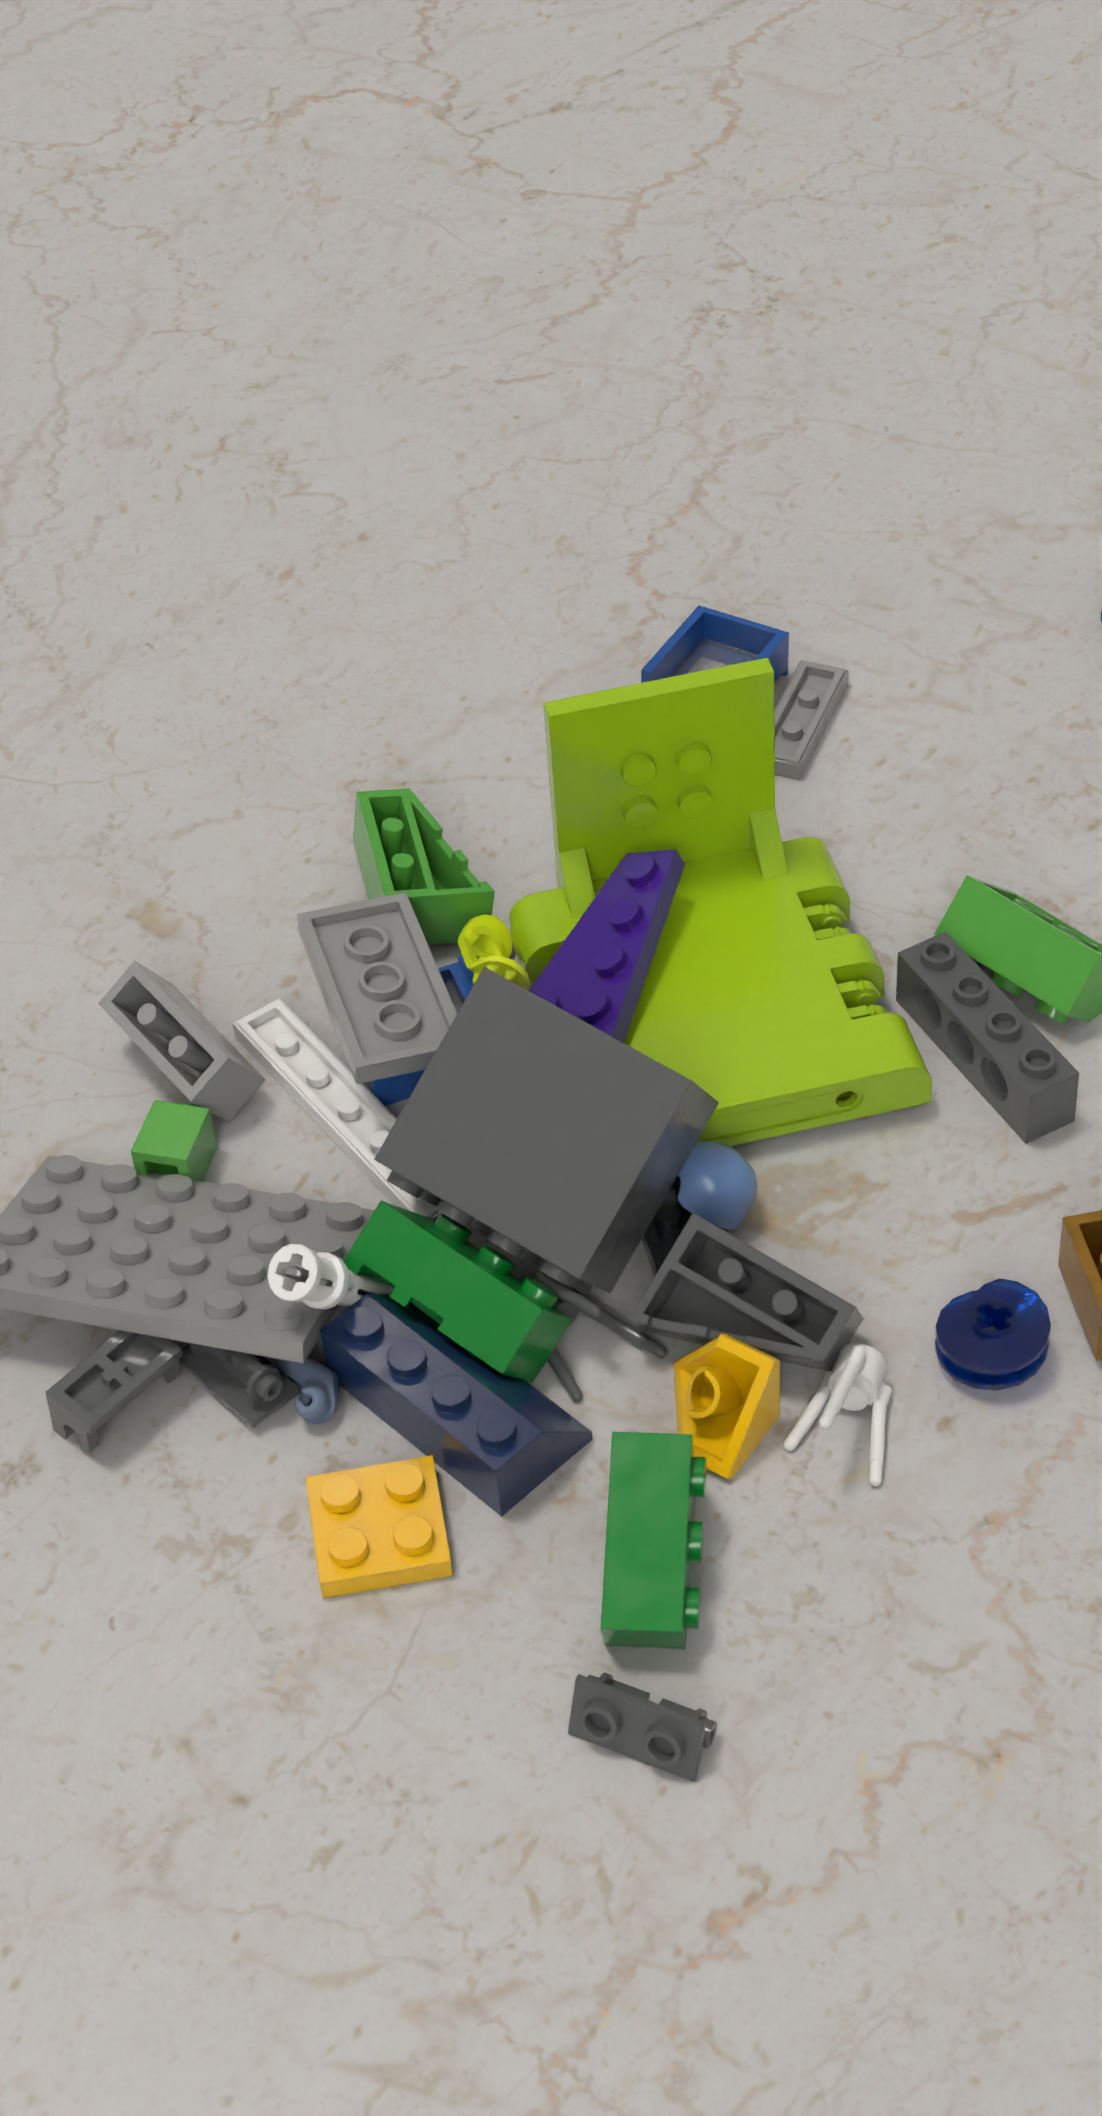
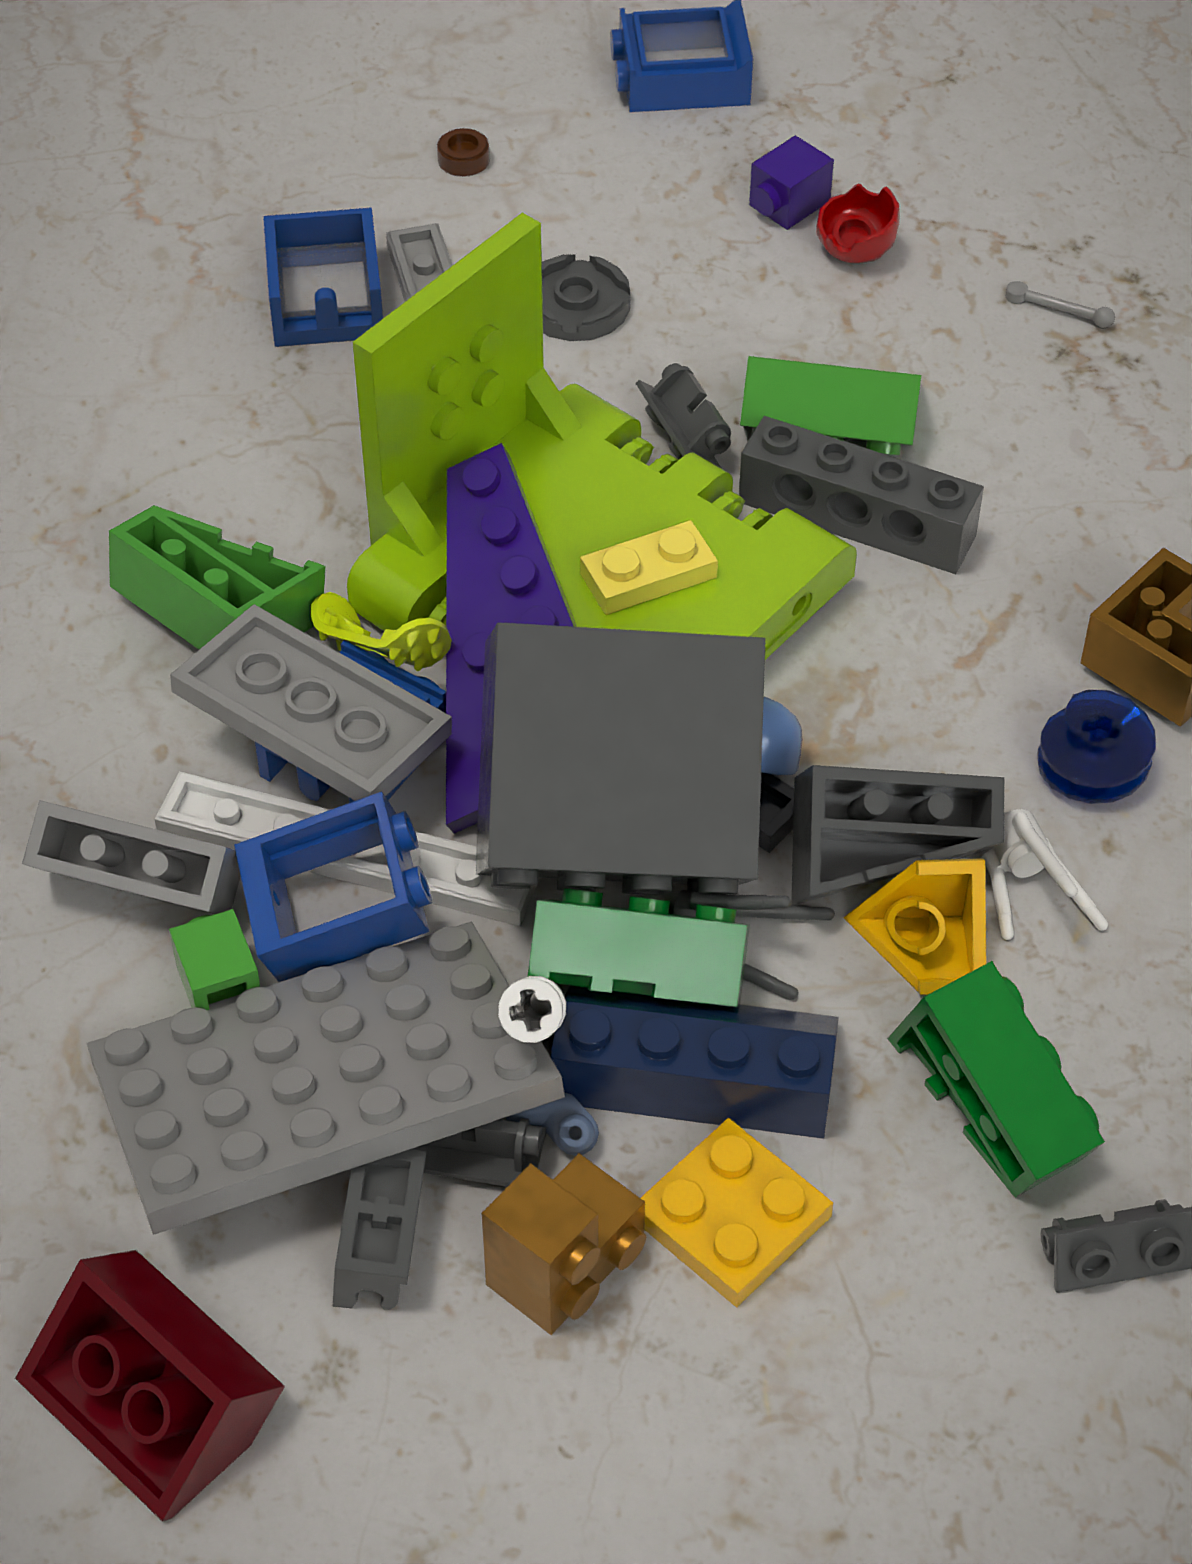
camera: 40 degrees left, 5 degrees up
(225, 1471) = (560, 1239): none -> pearl gold brick
(266, 1092) = (316, 842): none -> blue window
(730, 1005) = (648, 567): none -> light yellow plate
(896, 908) = (672, 408): none -> dark grey hinge
(911, 777) = (583, 297): none -> dark grey tile
(927, 622) = (463, 152): none -> reddish brown tile

